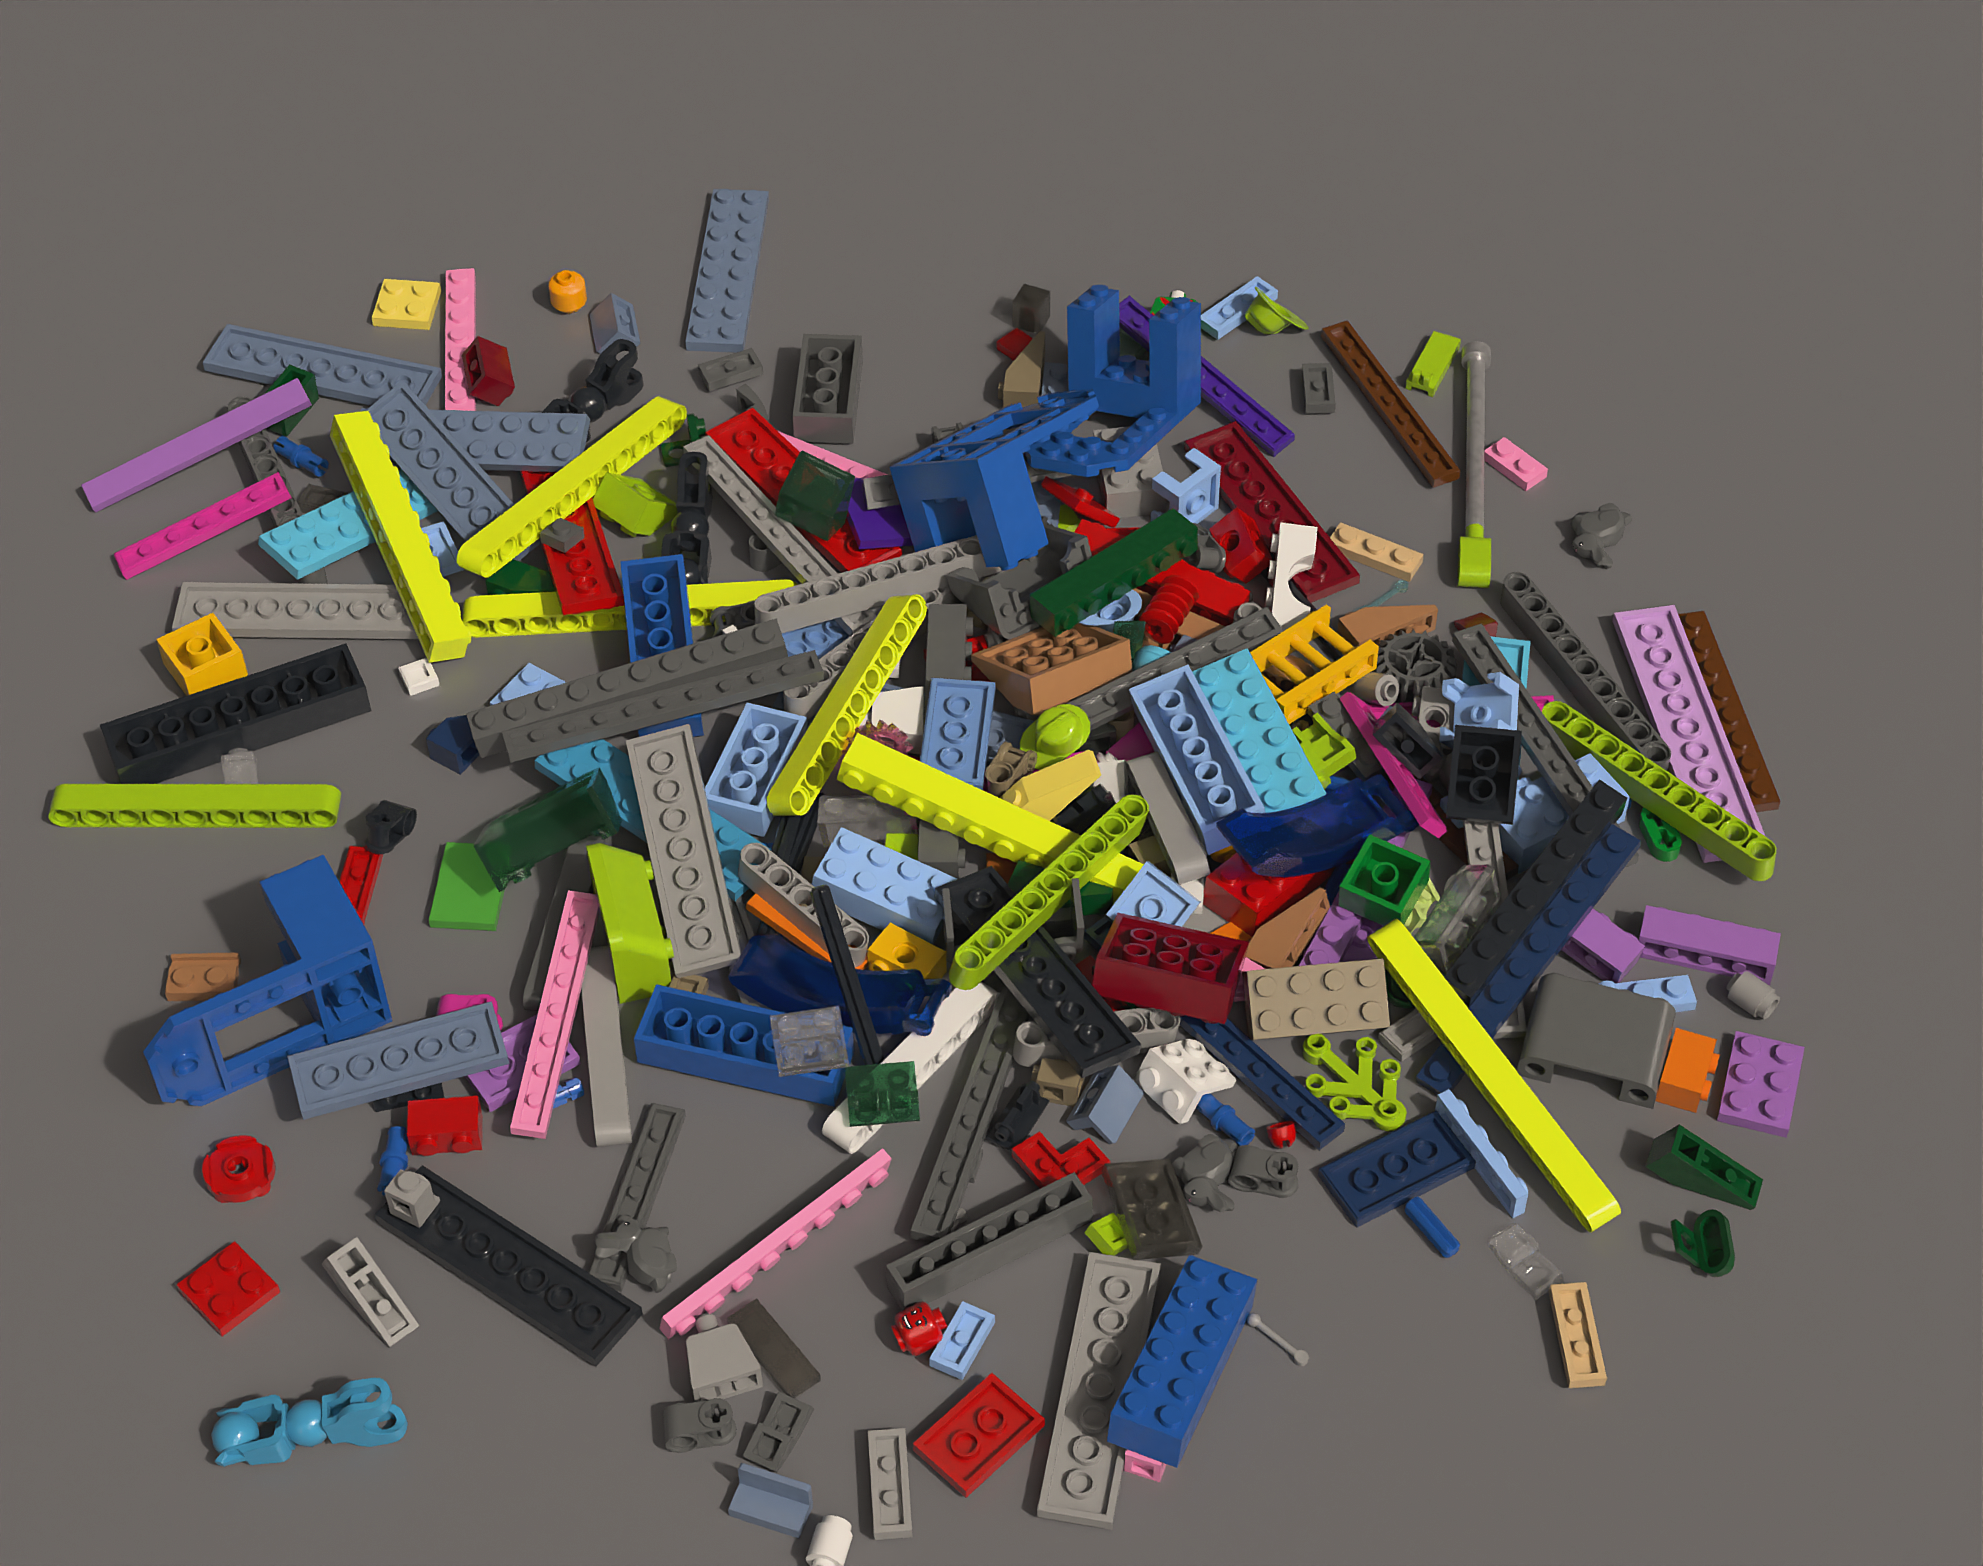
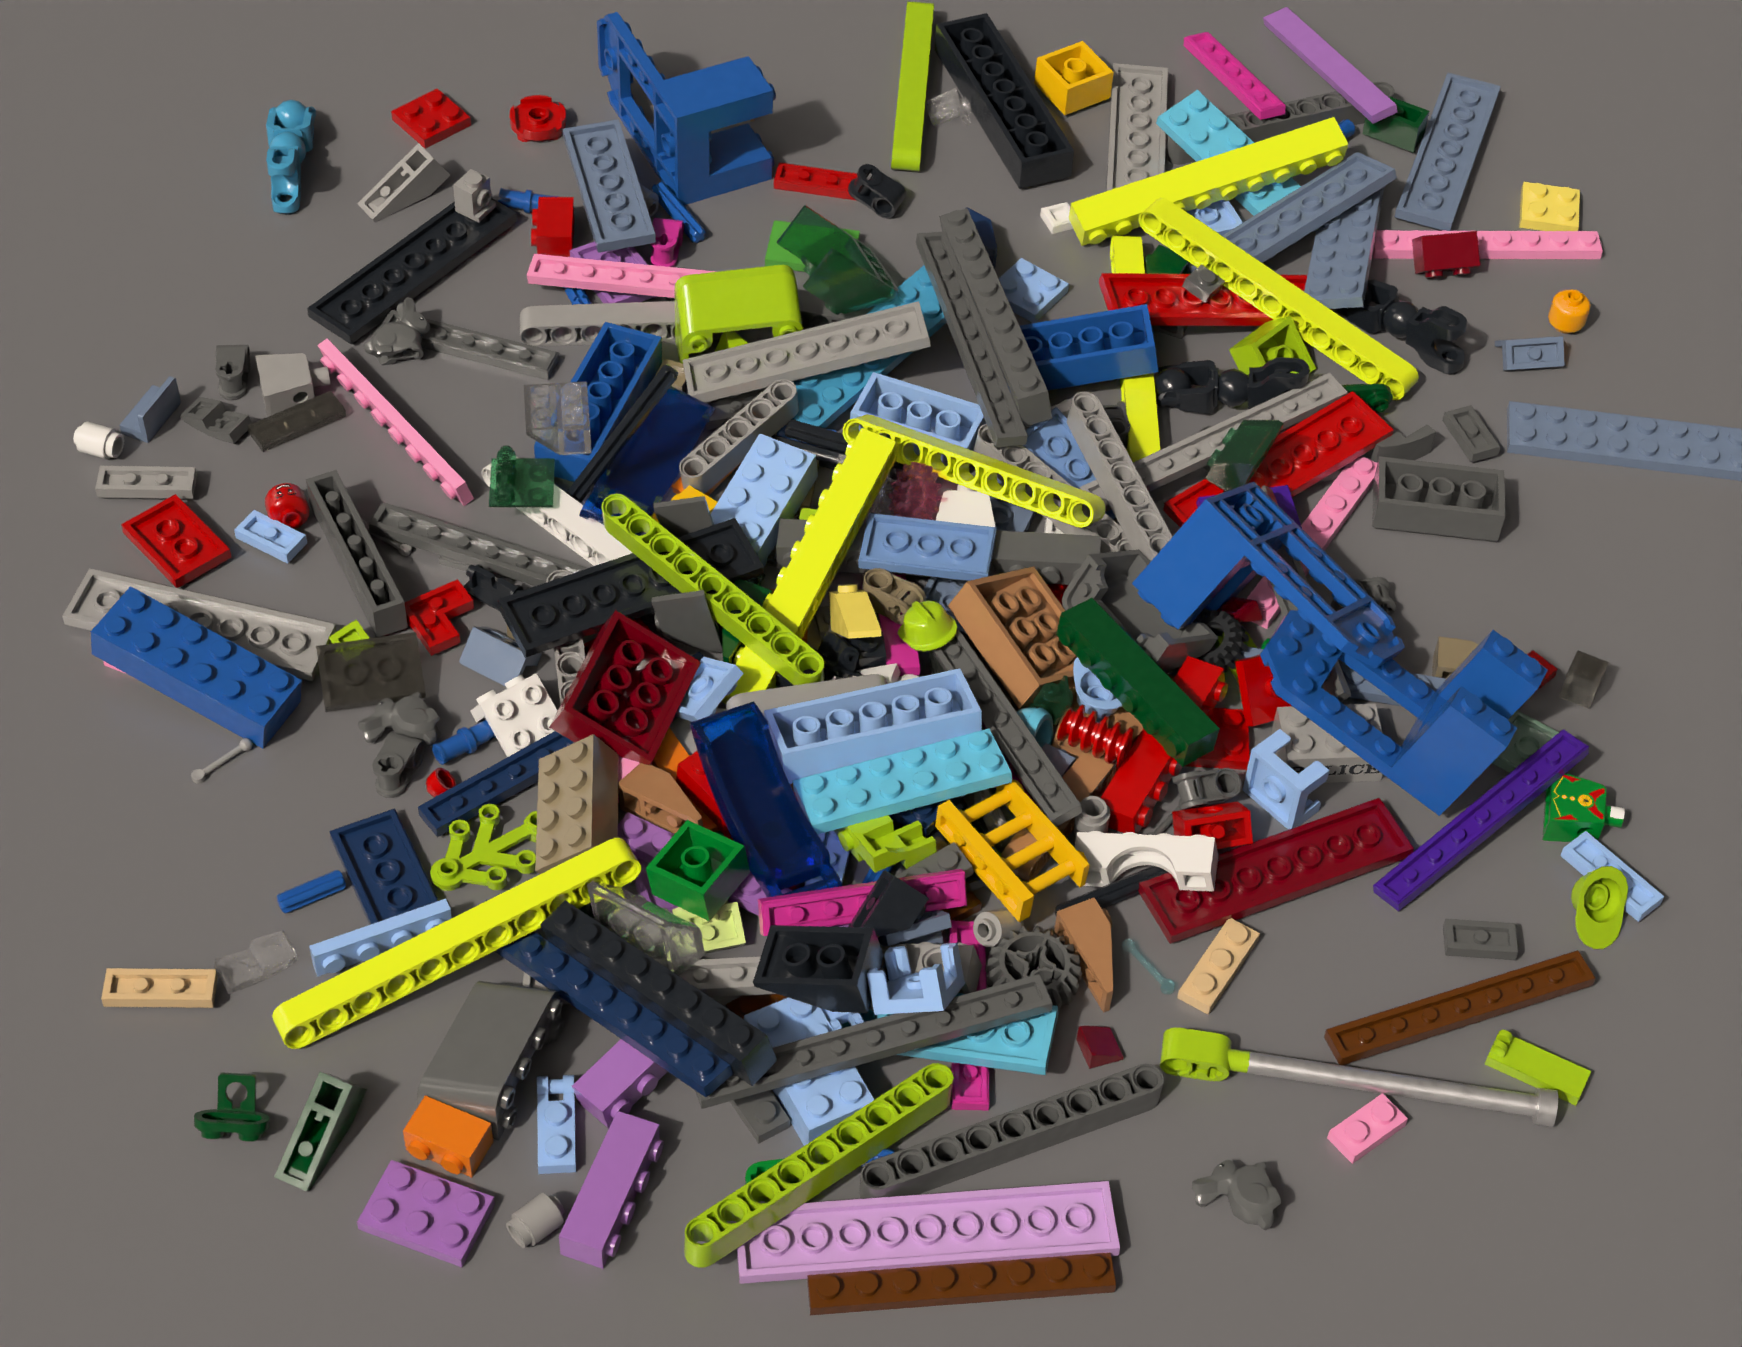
camera: 90 degrees right, 0 degrees up
(413, 1011) = (679, 212): none -> blue axle

